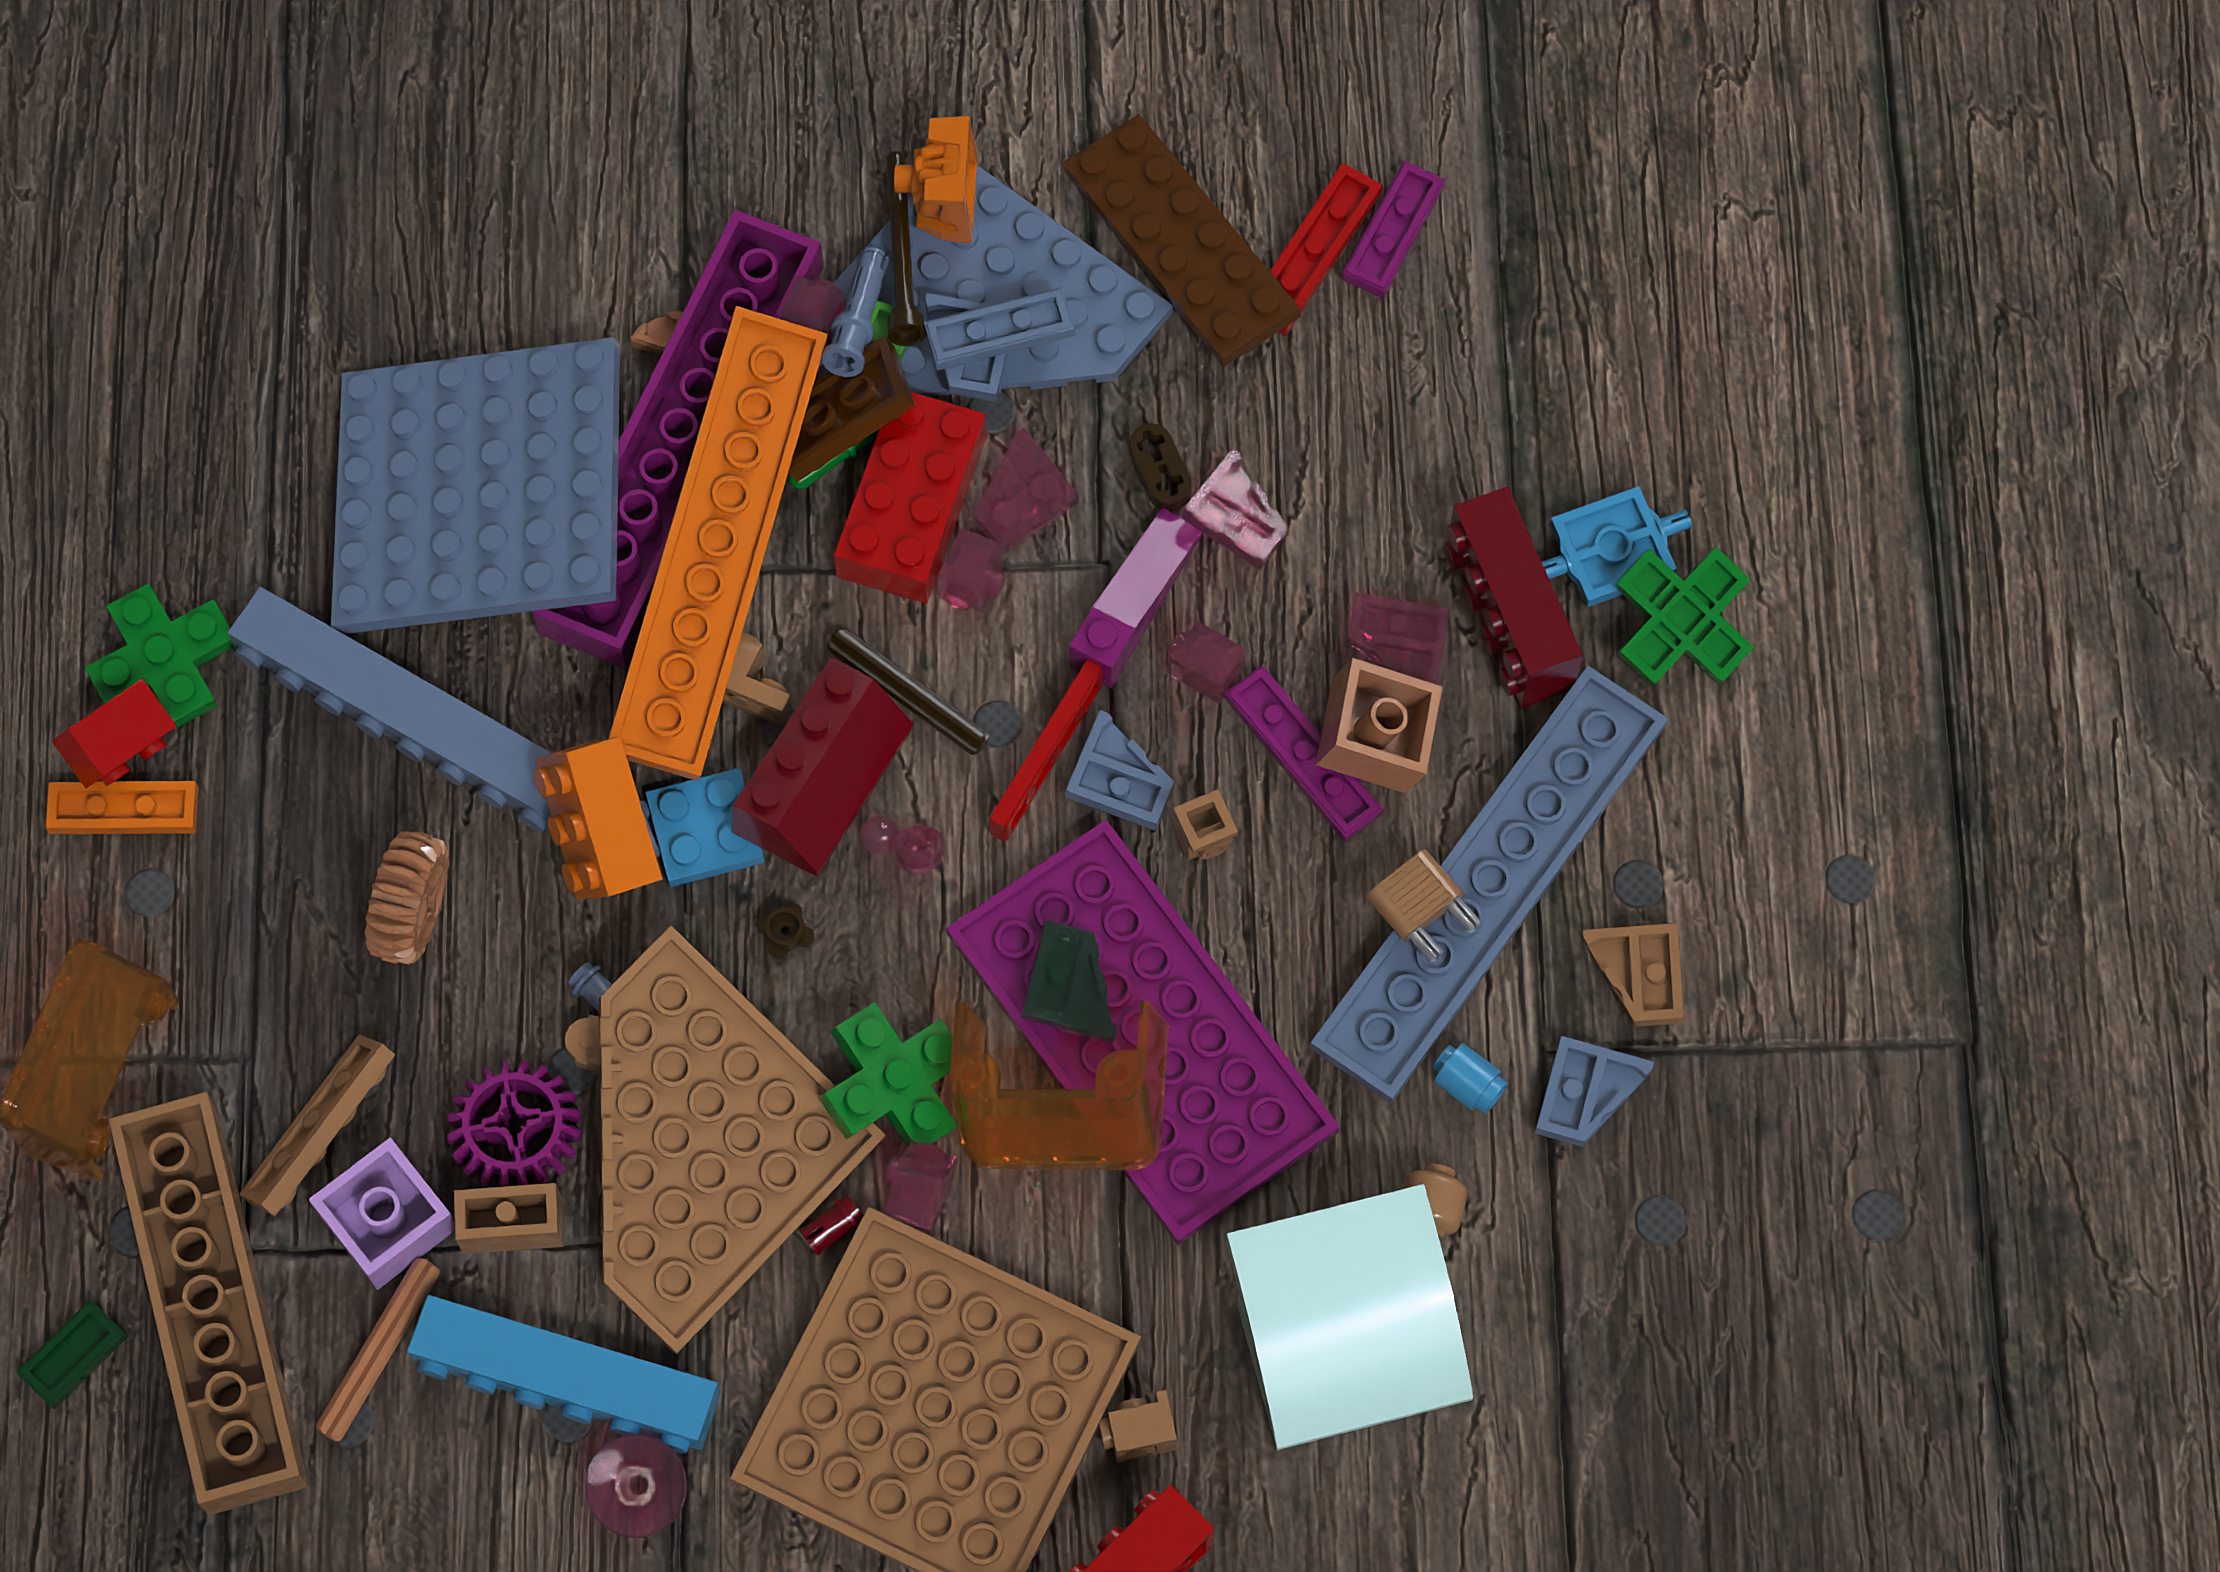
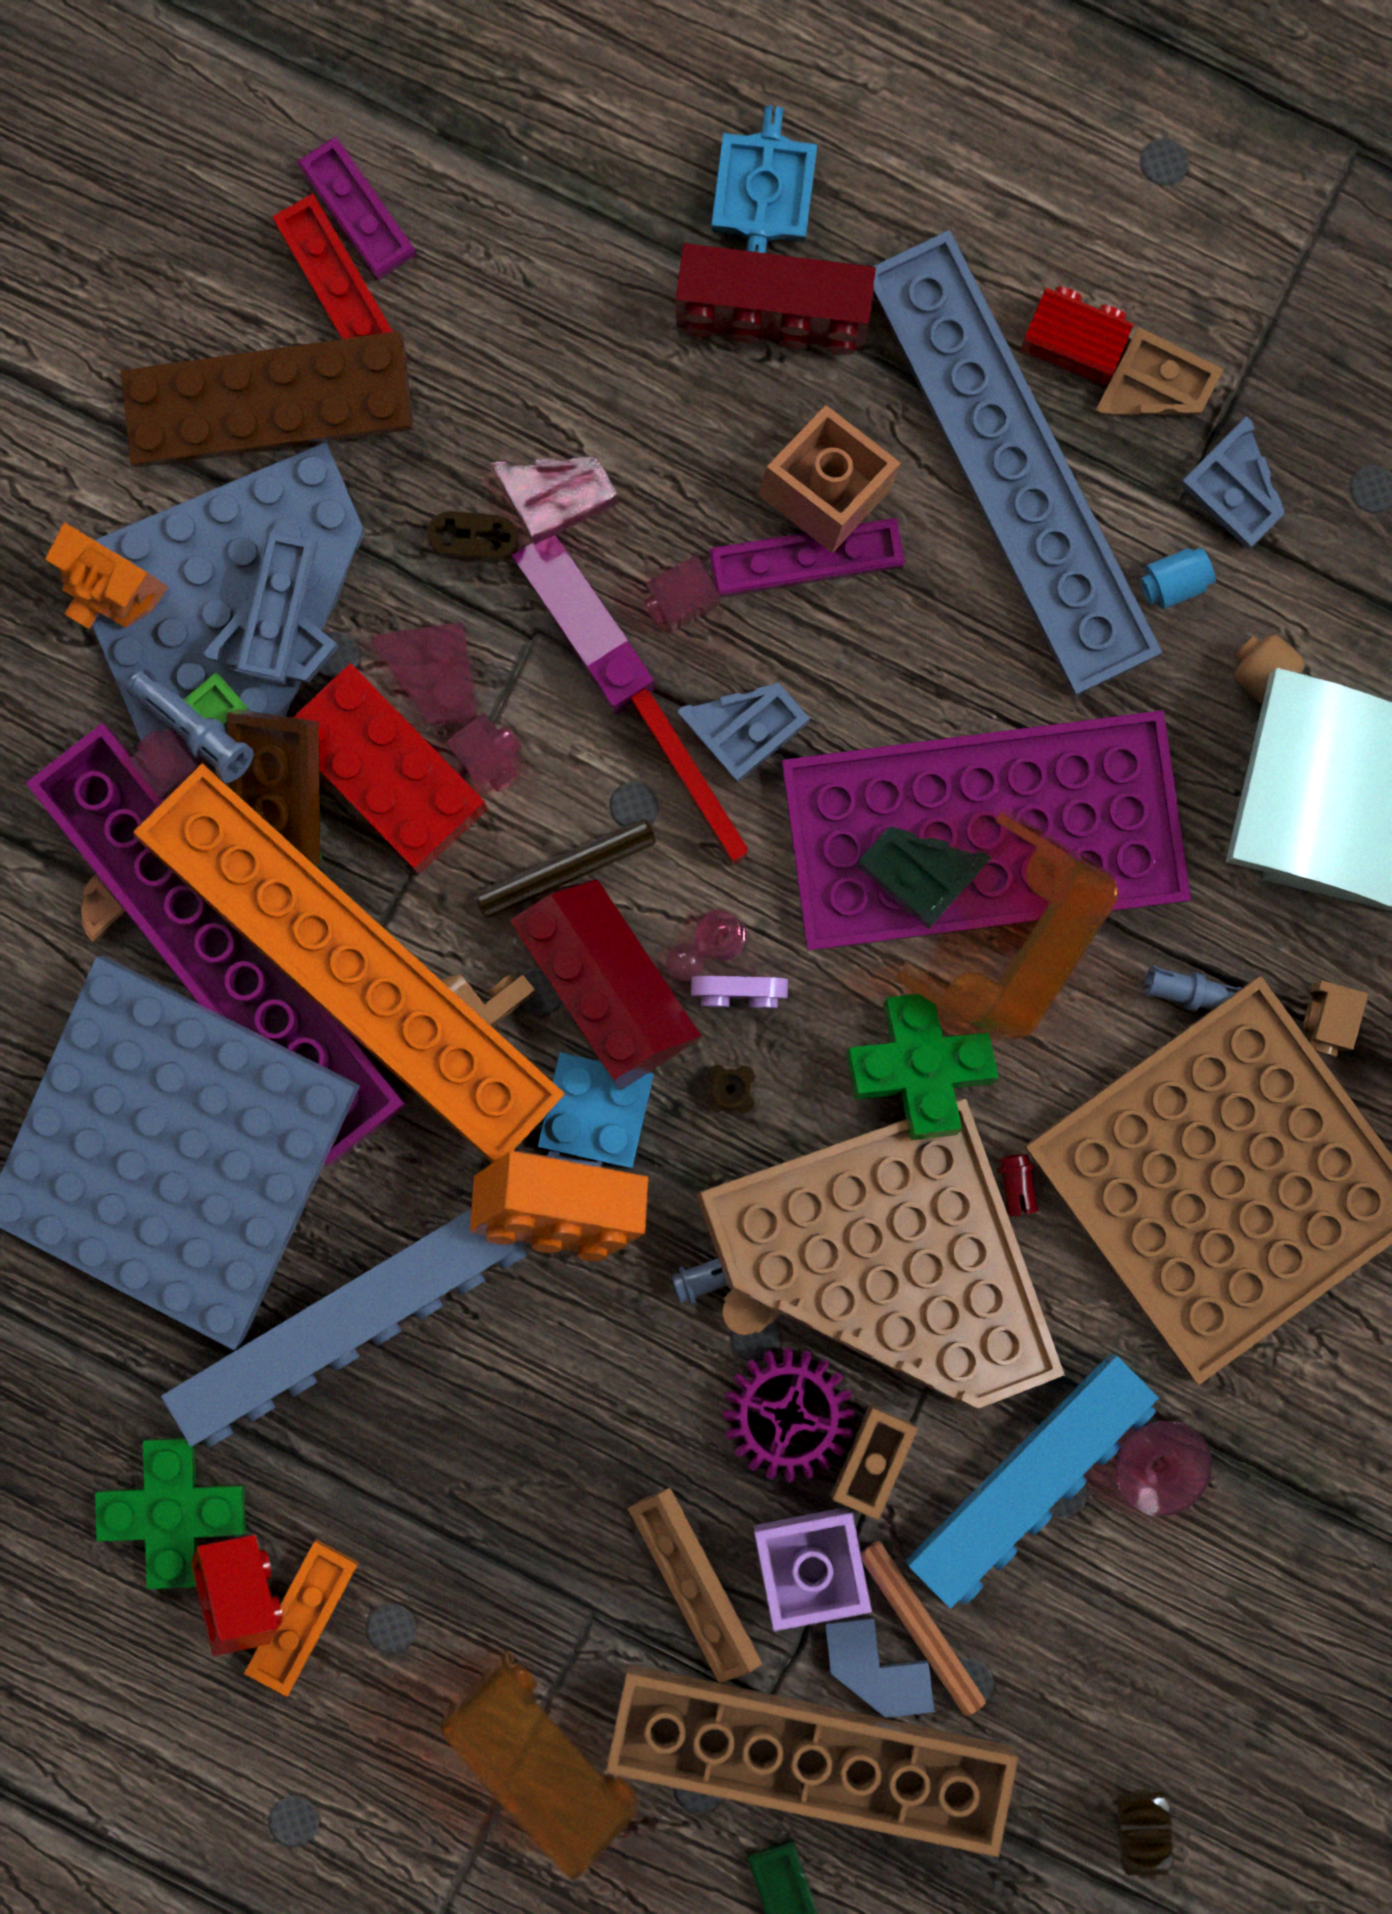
camera: 60 degrees left, 15 degrees up
(315, 1308) = (888, 1688): none -> sand blue tile
(407, 897) = (535, 1408): nougat gear -> none
(886, 906) = (718, 990): none -> lavender plate
(905, 322) = (223, 686): dark brown piece -> none
(919, 1184) = (1029, 1092): clear pink brick -> none
(1093, 1280) = (1189, 990): none -> sand blue pin
(1204, 826) = (840, 678): medium nougat brick -> none
(1399, 635) = (750, 416): clear pink wing -> none
(1416, 898) = (1001, 531): medium nougat piece -> none
(1640, 875) = (1077, 334): none -> red brick
(1683, 616) = (865, 163): green plate -> none

